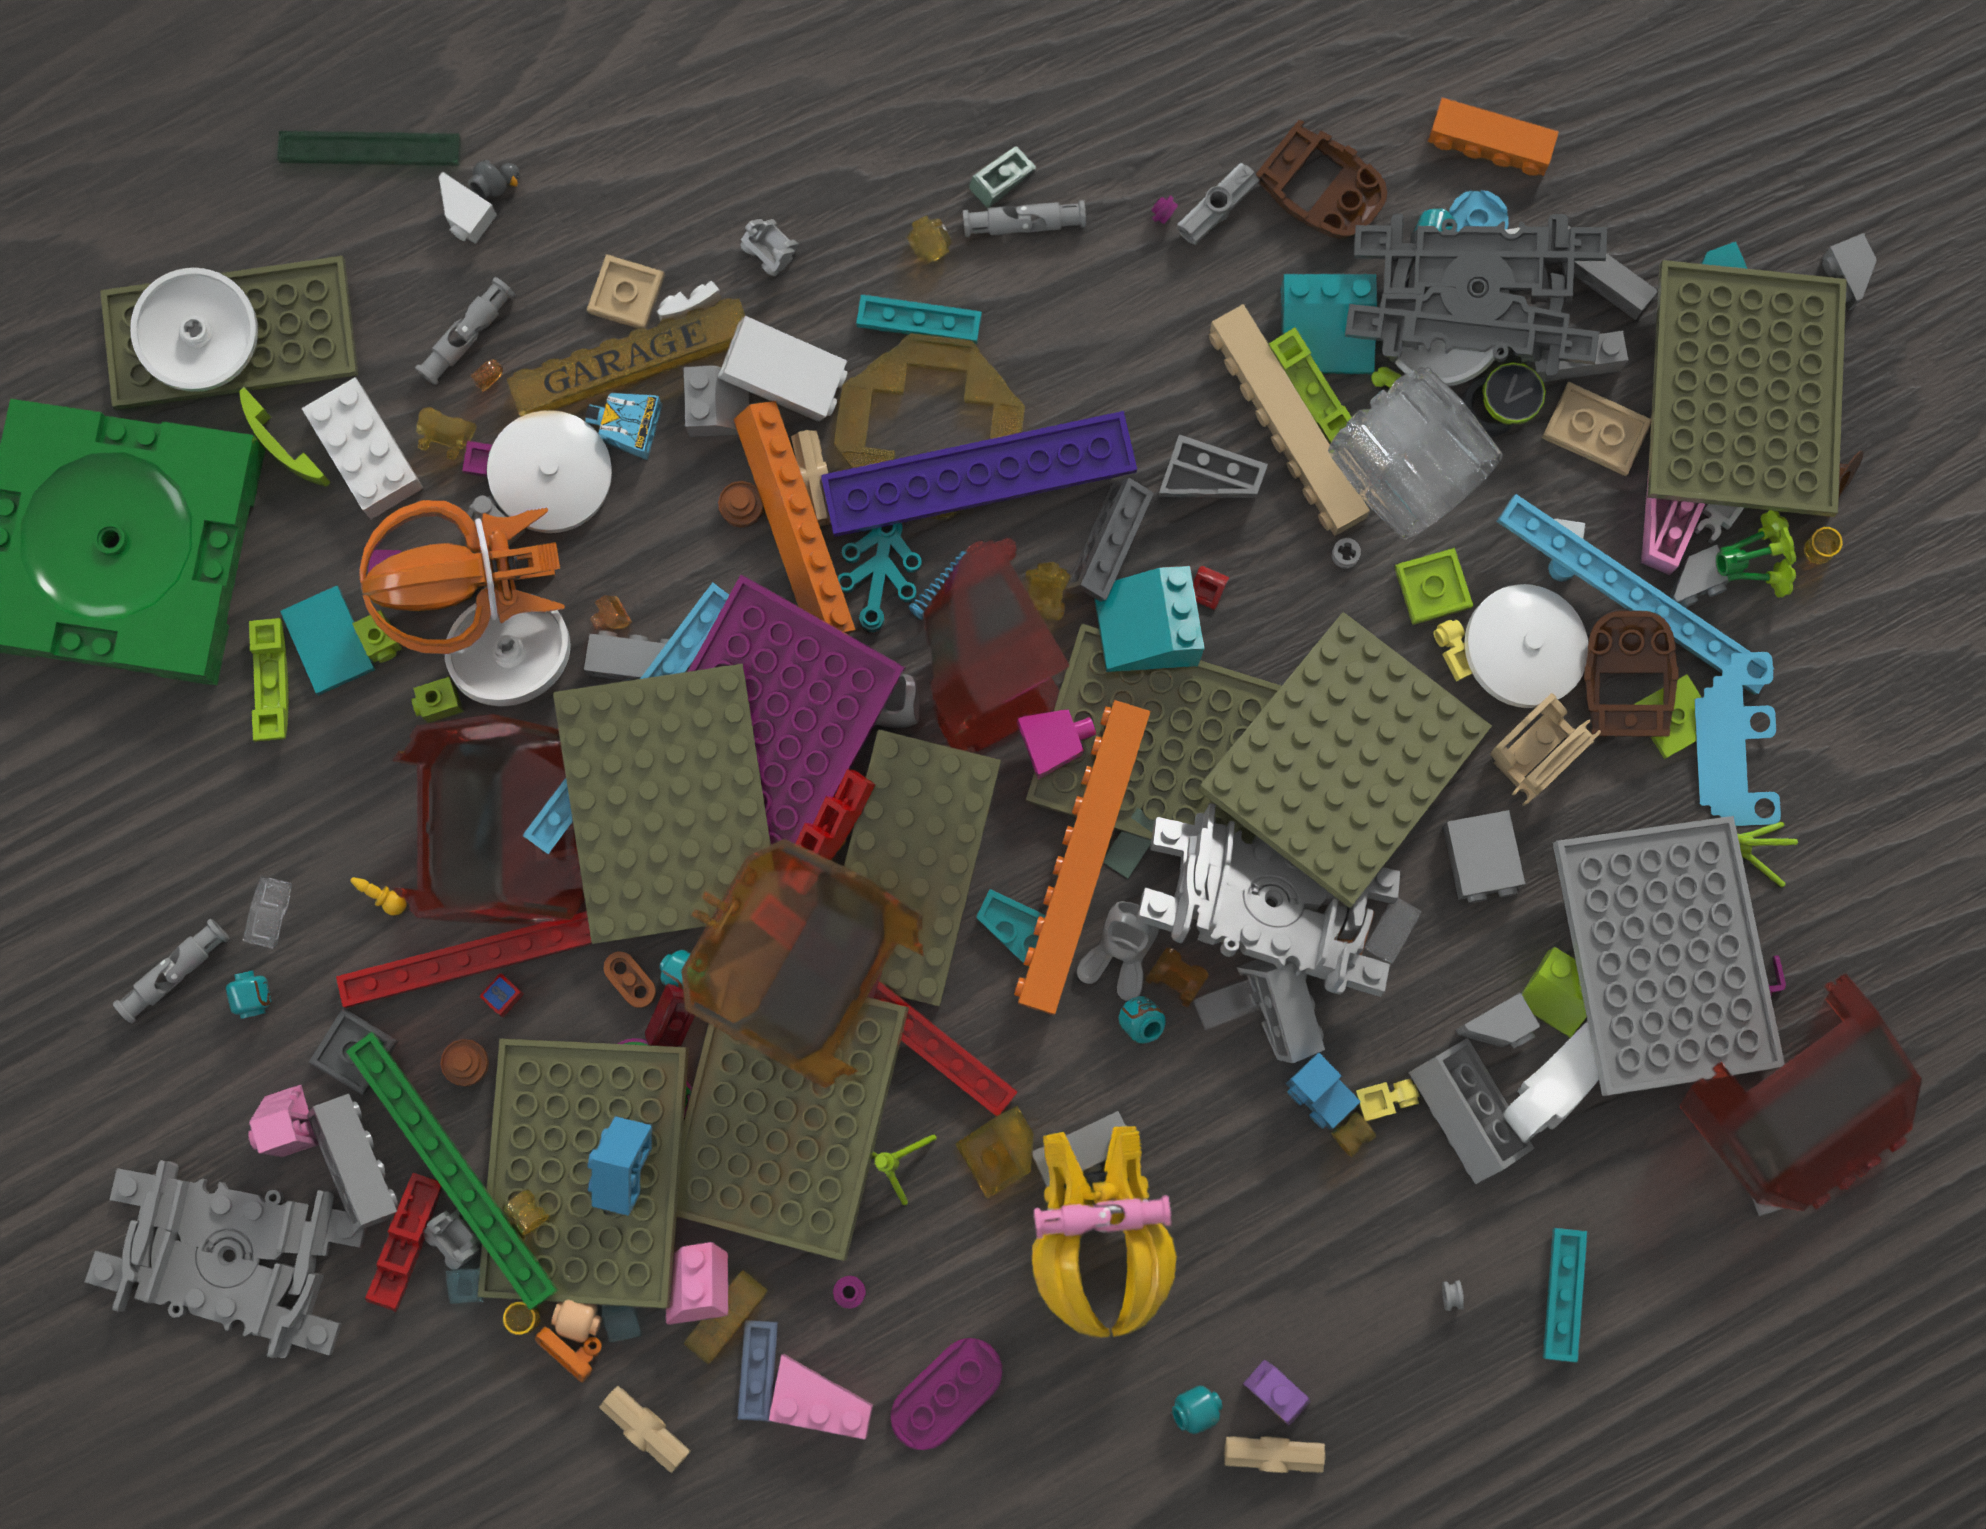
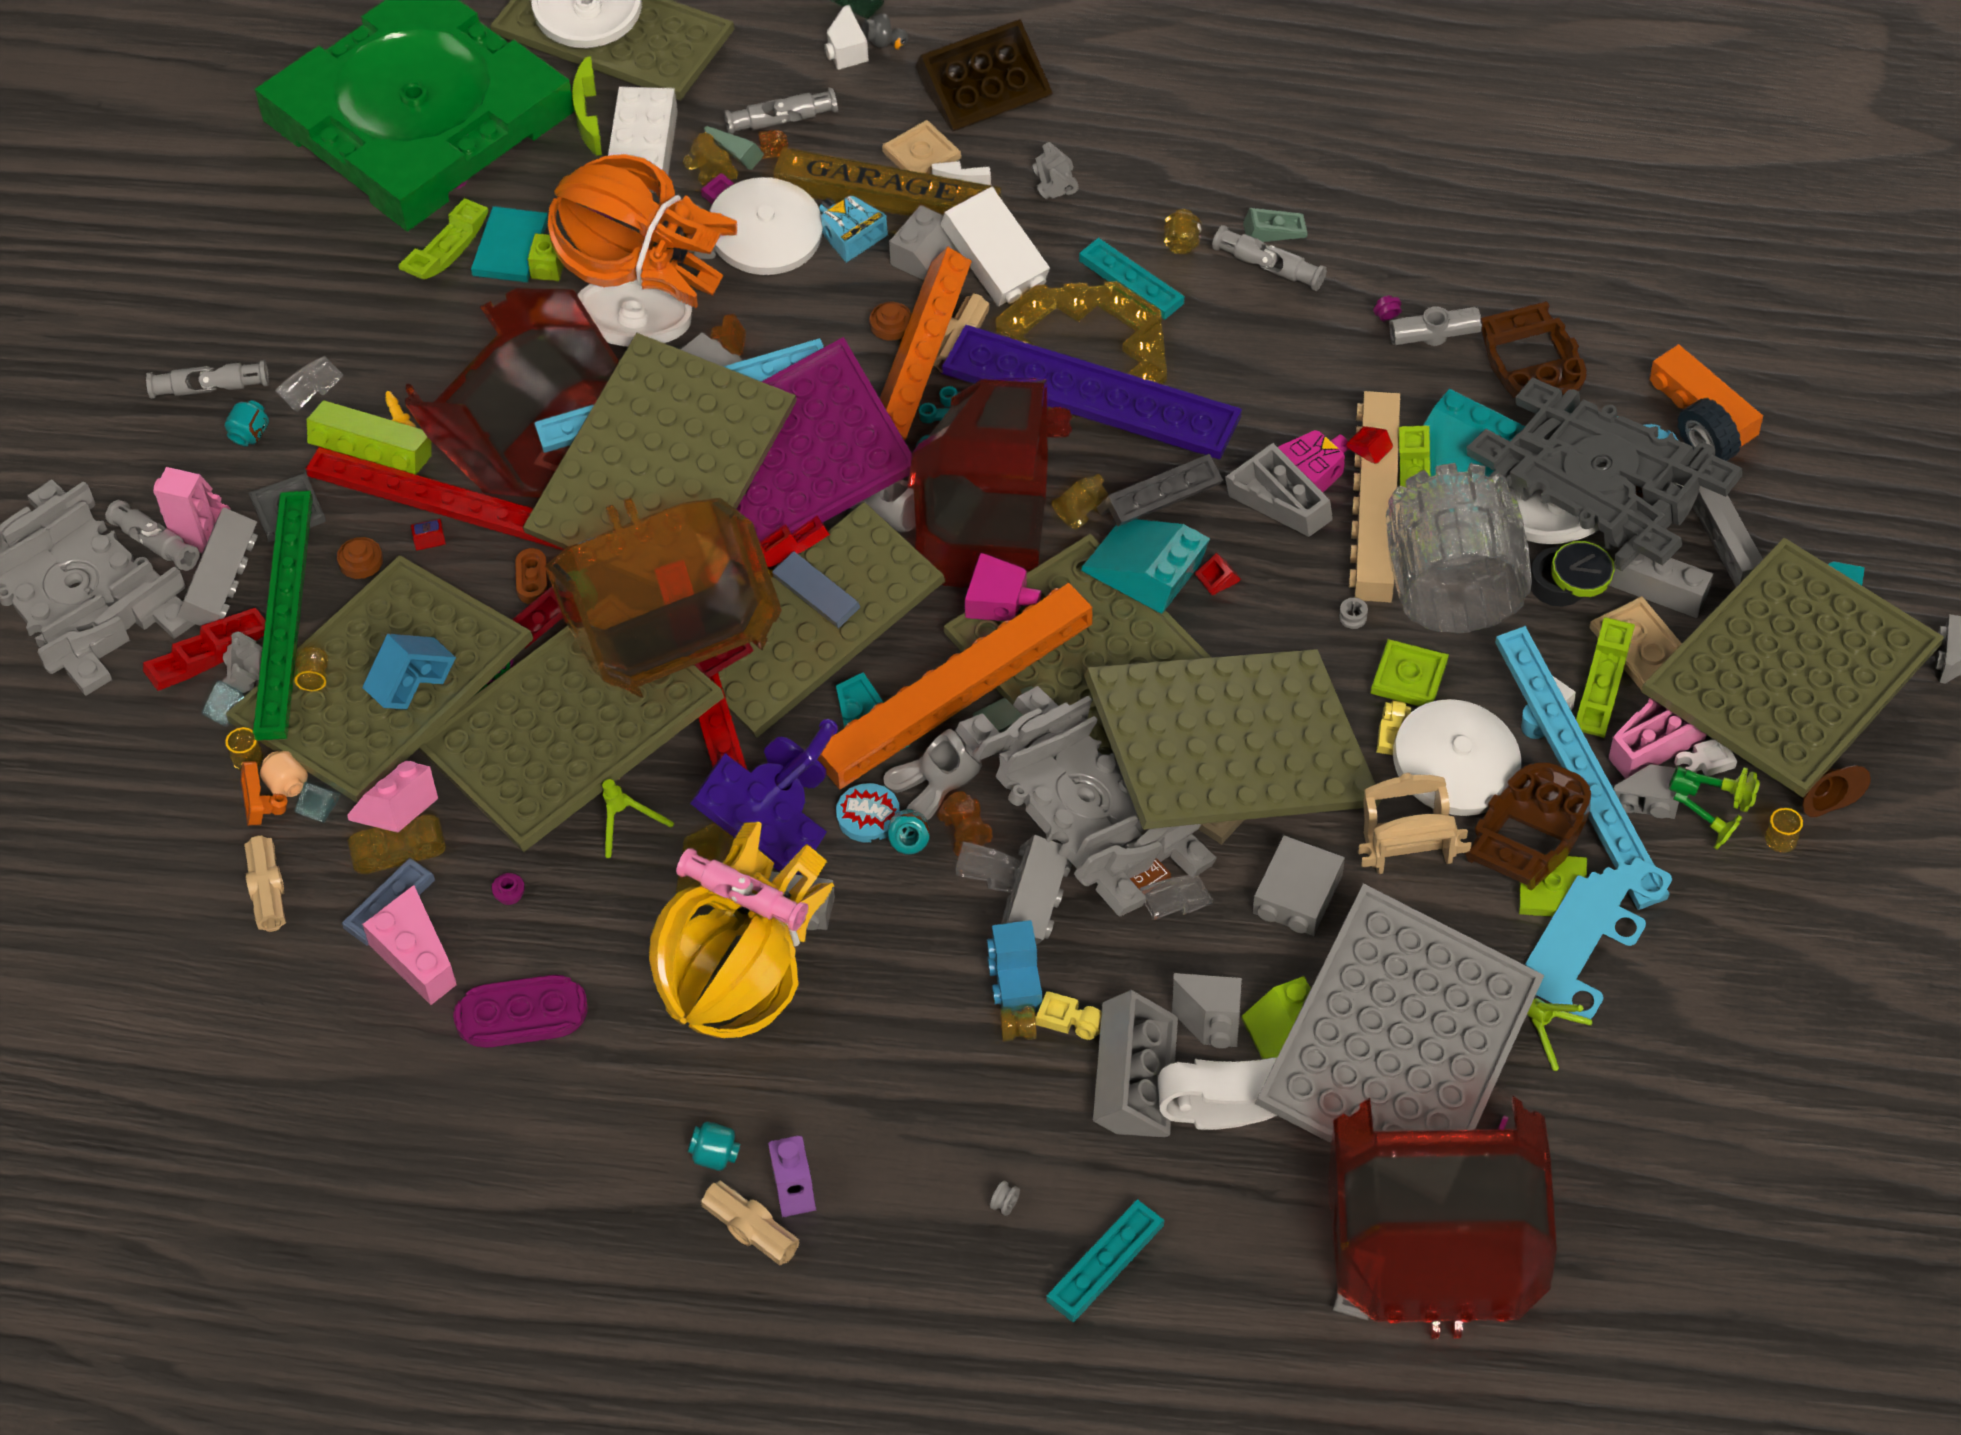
camera: 35 degrees right, 25 degrees down
(244, 1167) = (152, 535): none -> light grey piece
(371, 940) = (368, 437): none -> lime brick
(463, 402) = (741, 149): none -> sand green slope
(625, 172) = (983, 75): none -> dark brown slope
(902, 845) = (816, 589): none -> sand blue tile
(1014, 1084) = (737, 796): none -> dark purple plate
(1088, 1017) = (866, 812): none -> tile
(1213, 417) = (1318, 457): none -> dark pink torso
(1256, 377) = (1370, 443): none -> red slope
(1527, 180) = (1709, 424): none -> black wheel
(1592, 490) = (1604, 676): none -> lime slope

